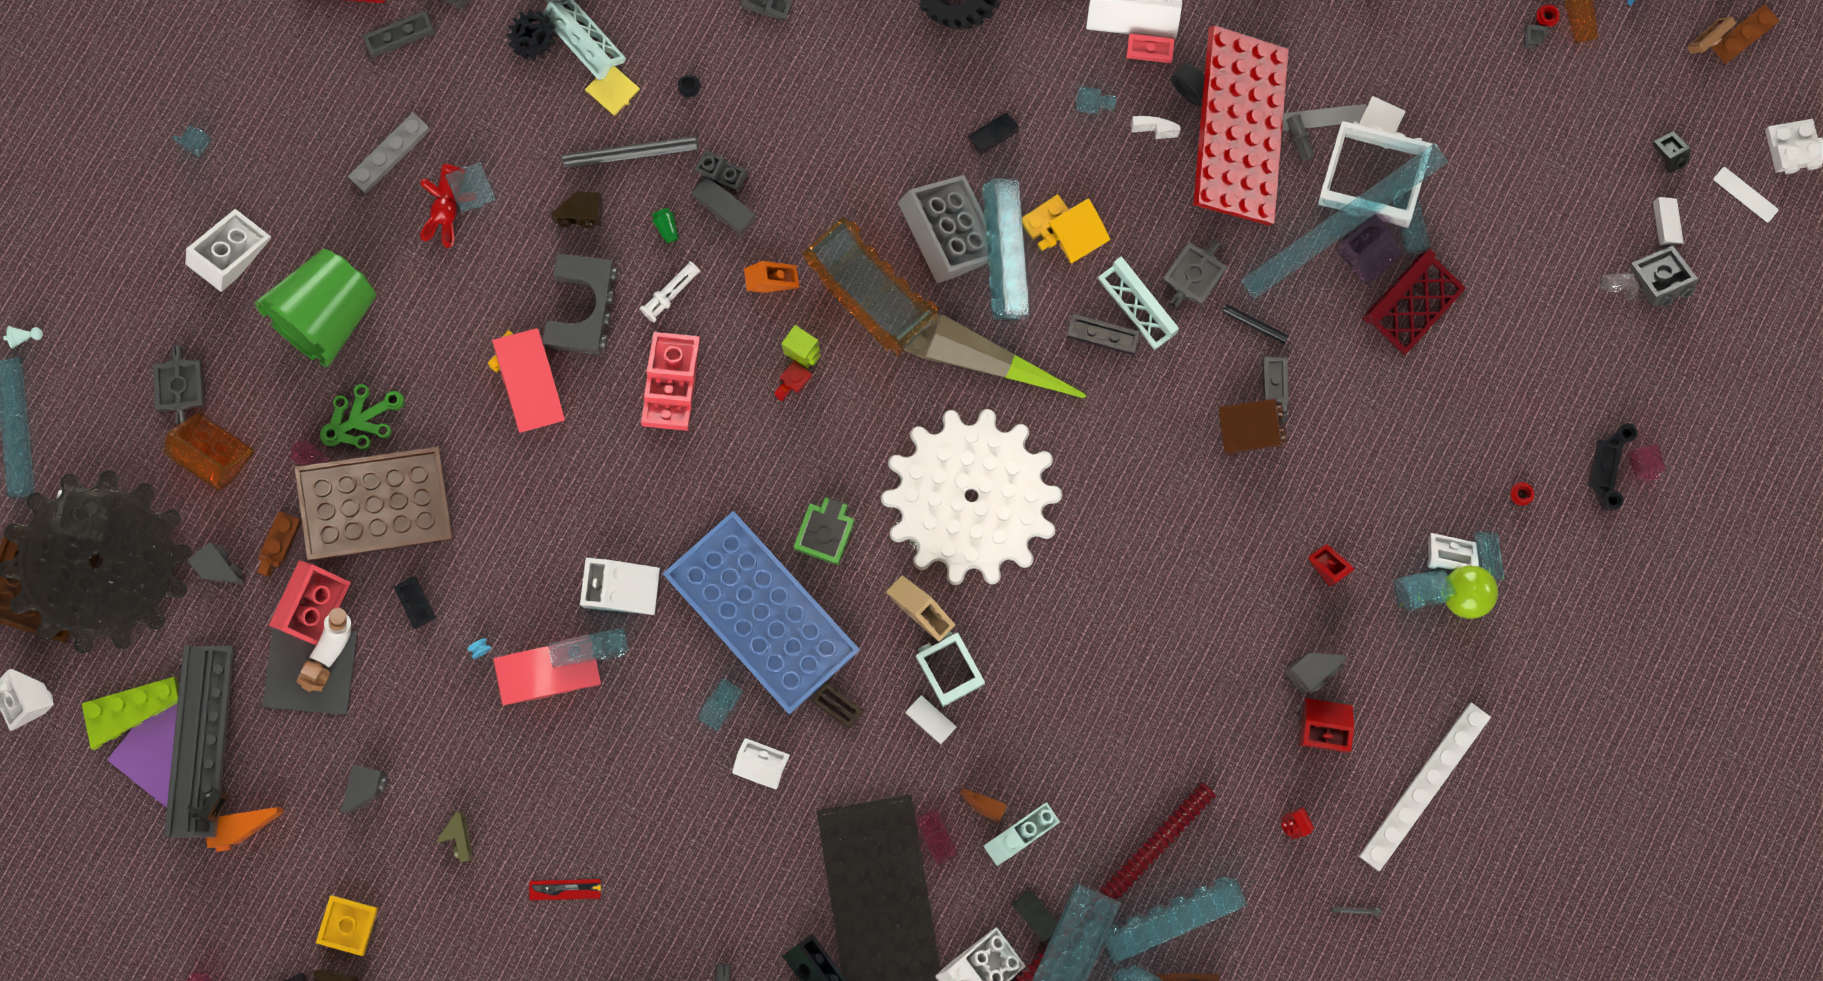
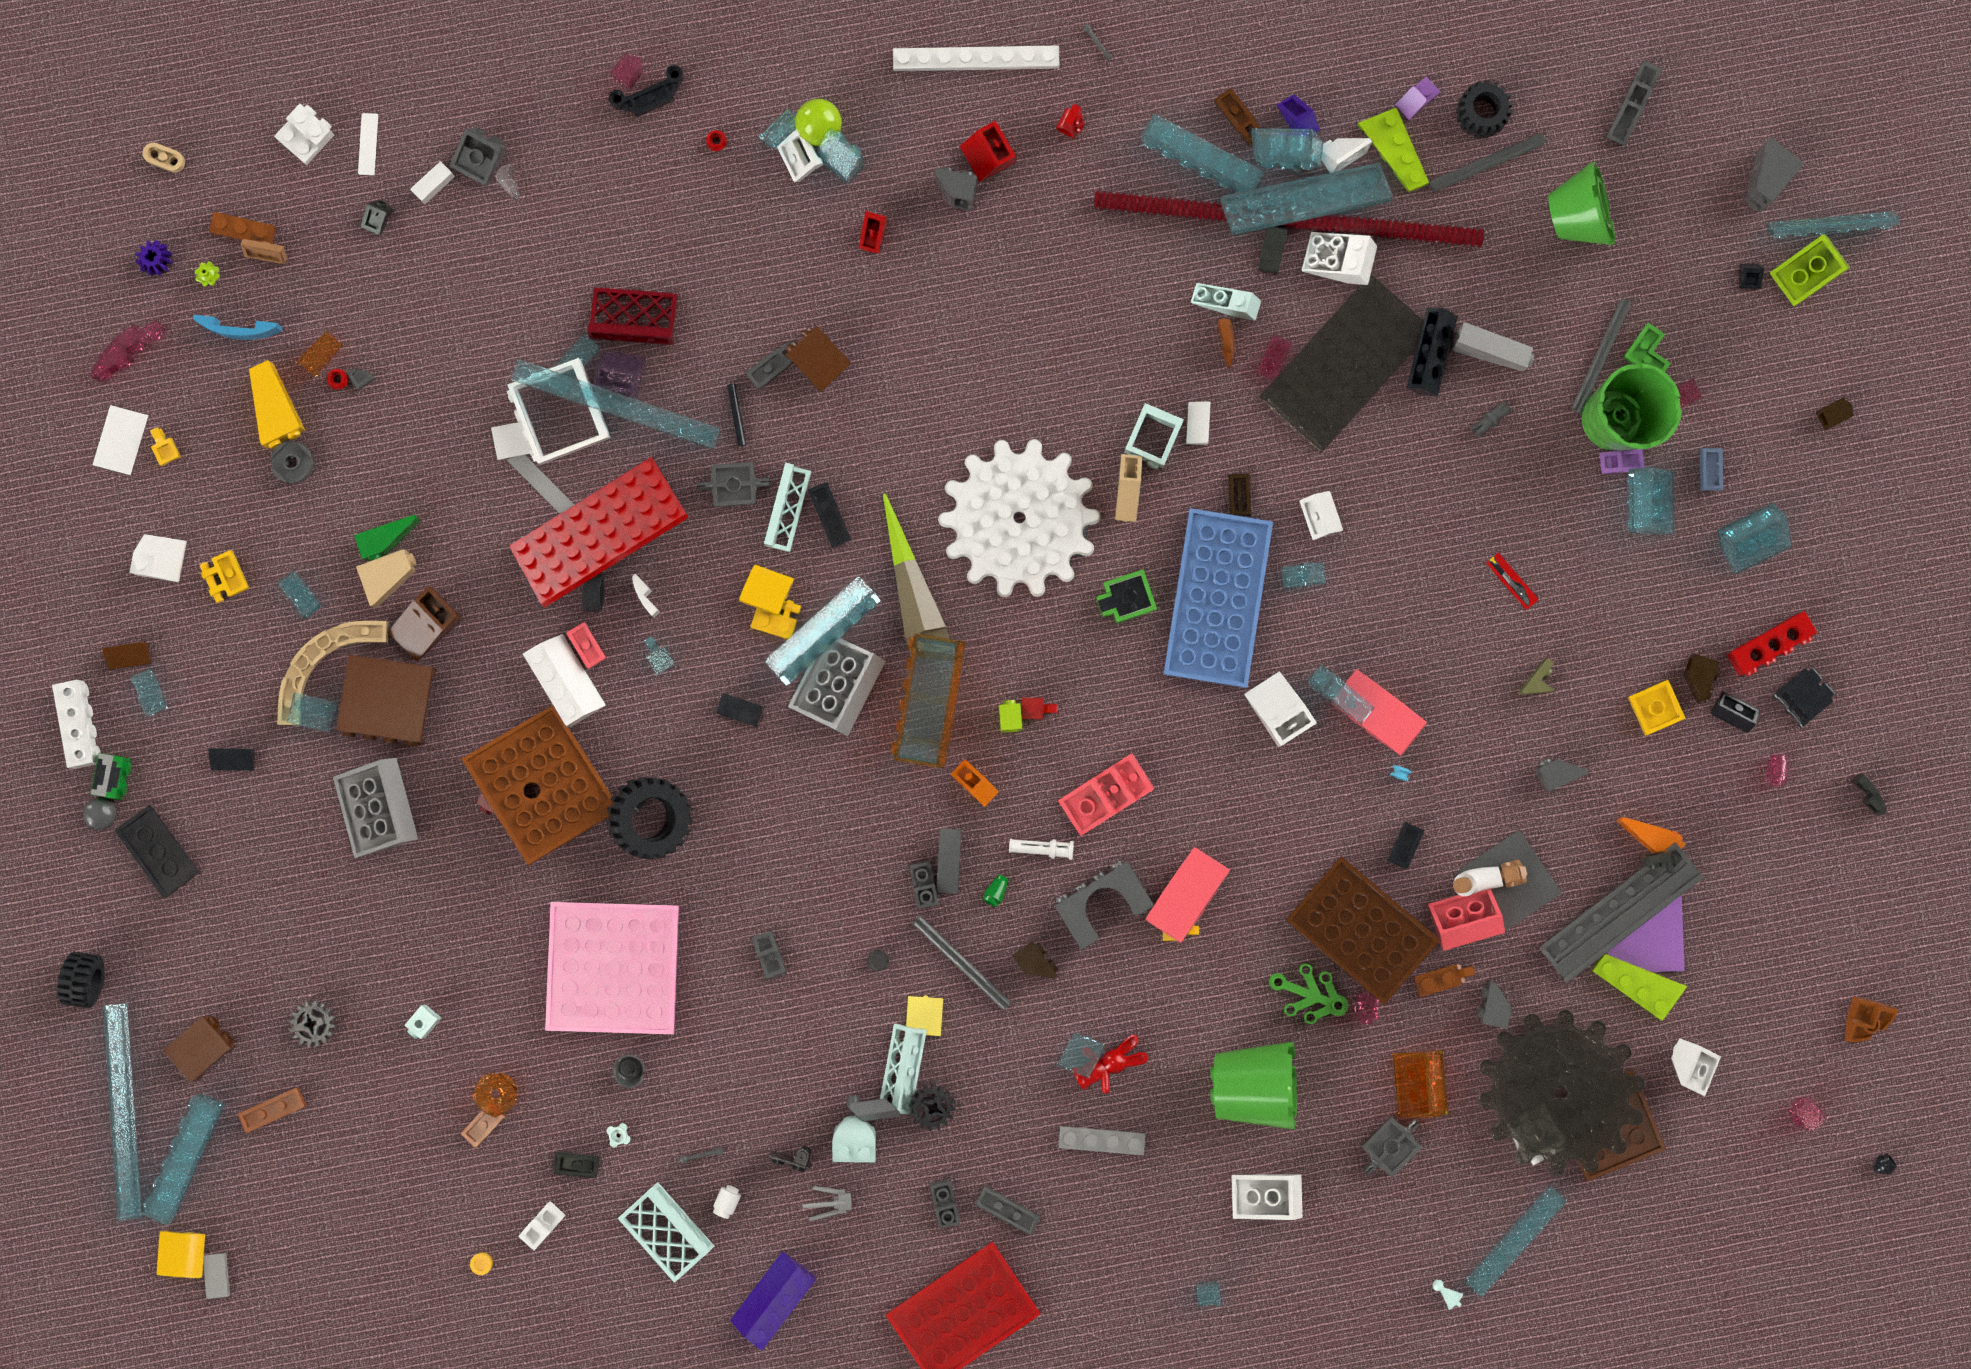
camera: 125 degrees left, 5 degrees up
(1300, 137) = (571, 486): dark grey axle -> none

